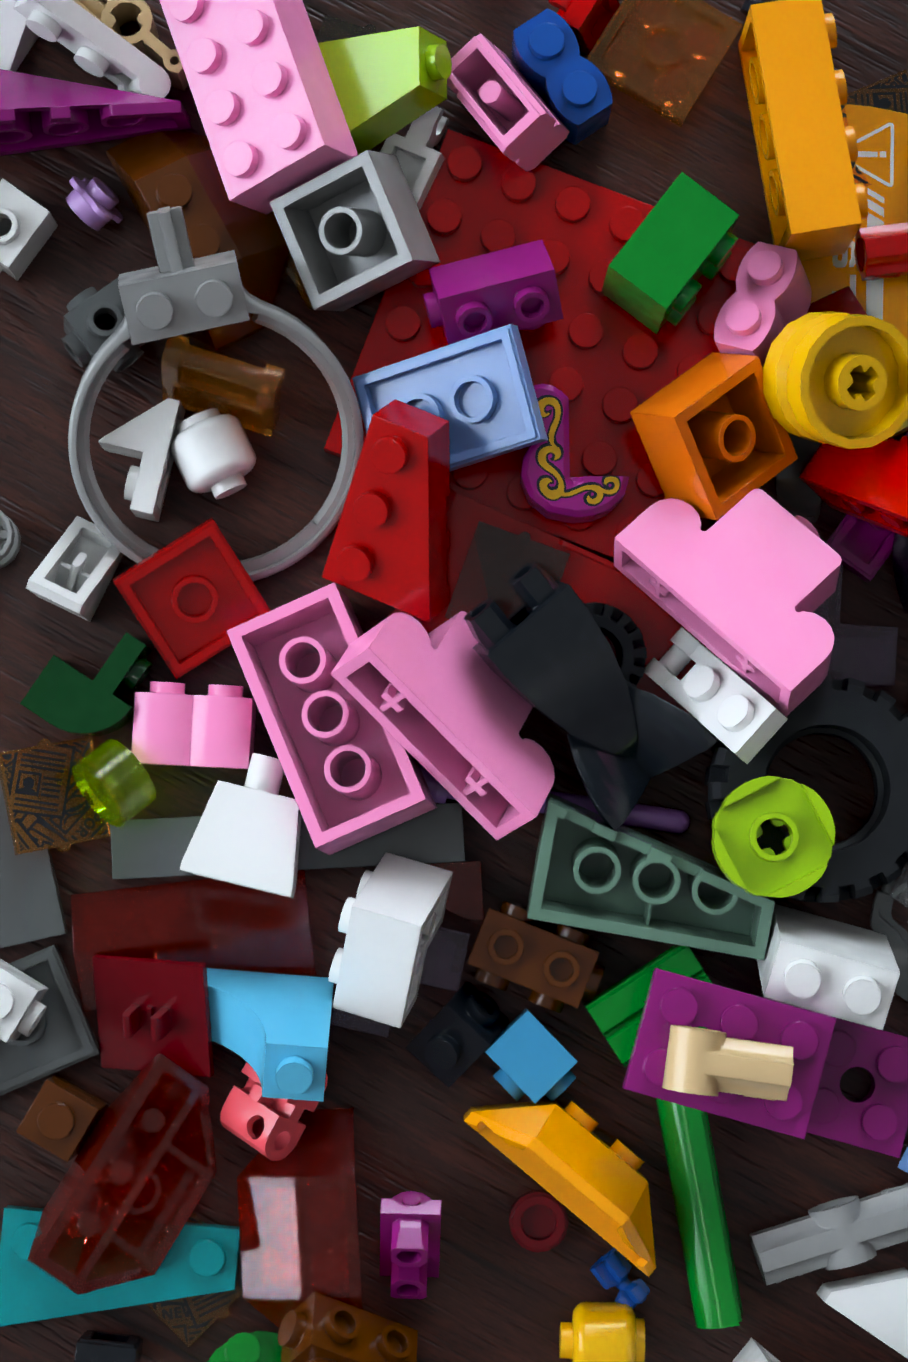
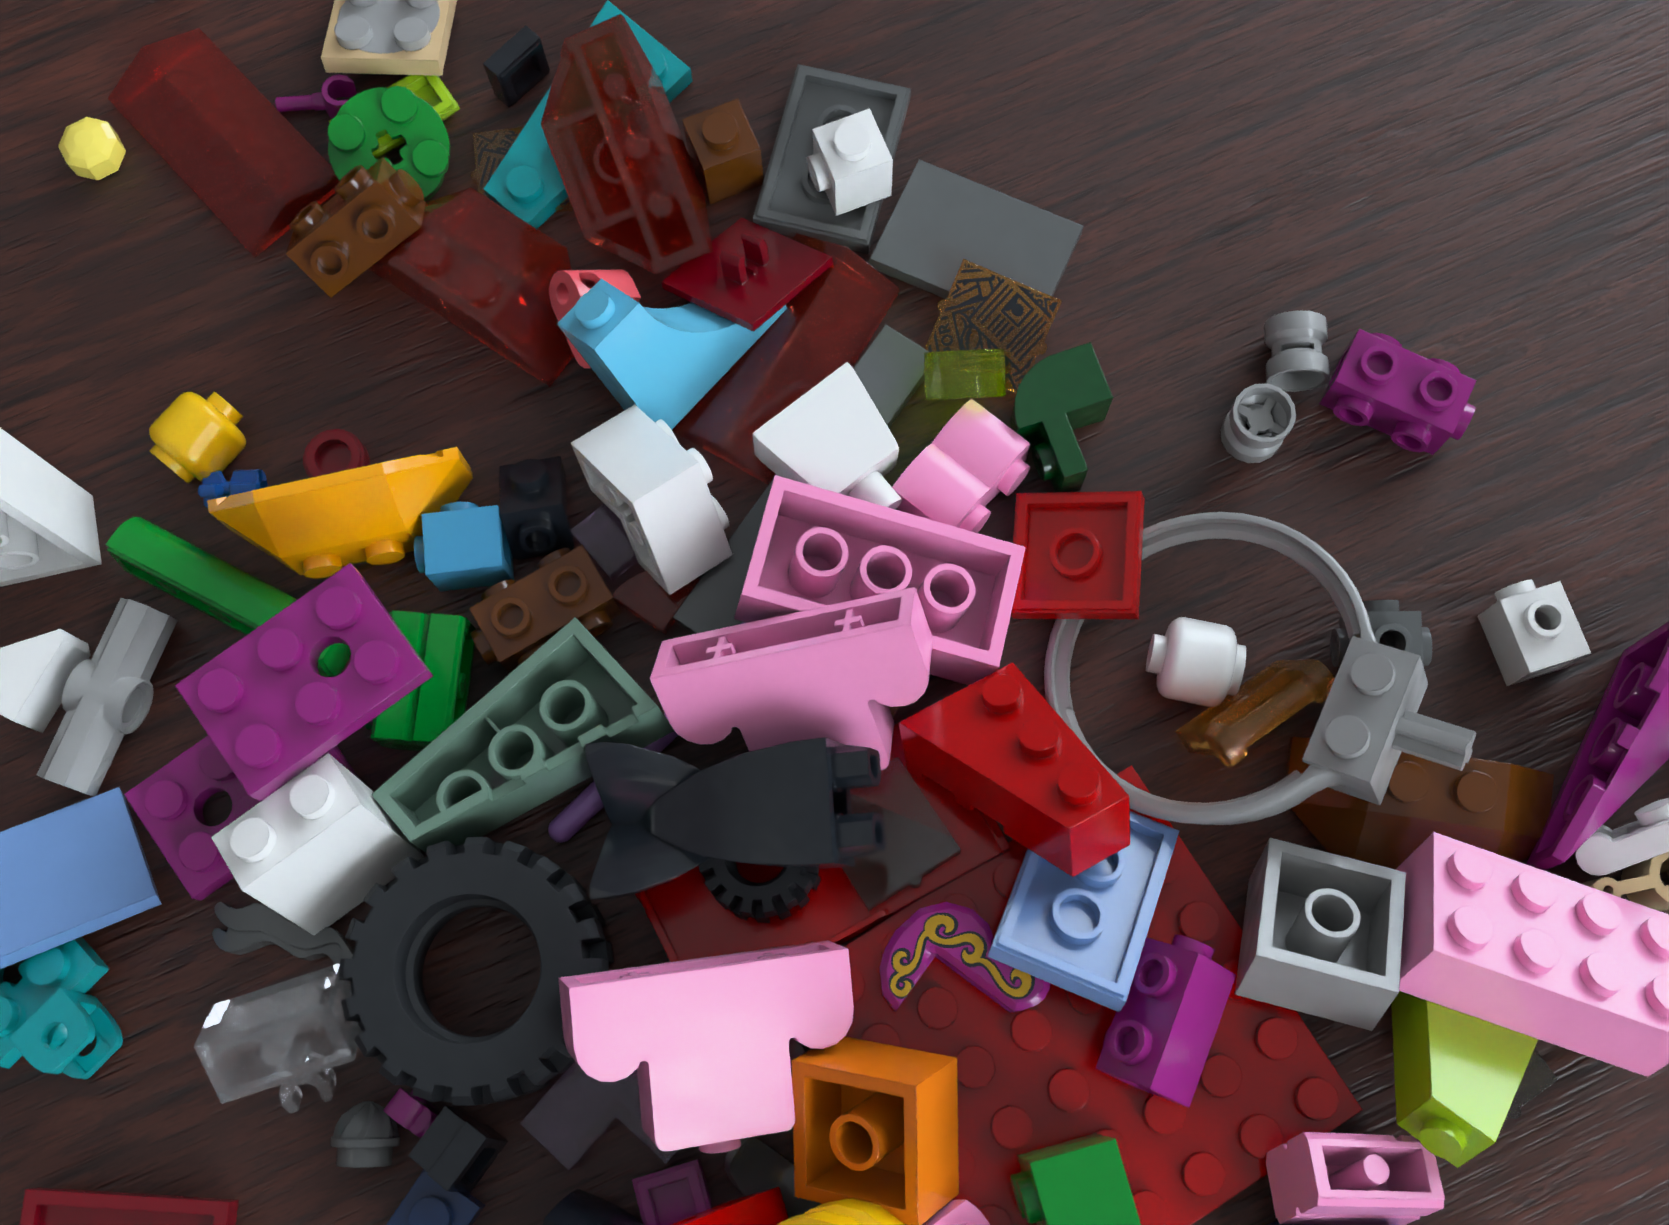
camera: 135 degrees right, 10 degrees down
(76, 570) = (1172, 468): white slope -> none
(93, 202) = (1510, 725): lavender plate -> none
(147, 439) = (1213, 596): white slope -> none
(410, 1242) = (404, 341): magenta hips -> none
(415, 152) = (1359, 1055): white plate -> none
(711, 1063) = (300, 640): tan piece -> none
(716, 696) = (627, 931): white plate -> none
(806, 847) = (439, 842): lime plate -> none

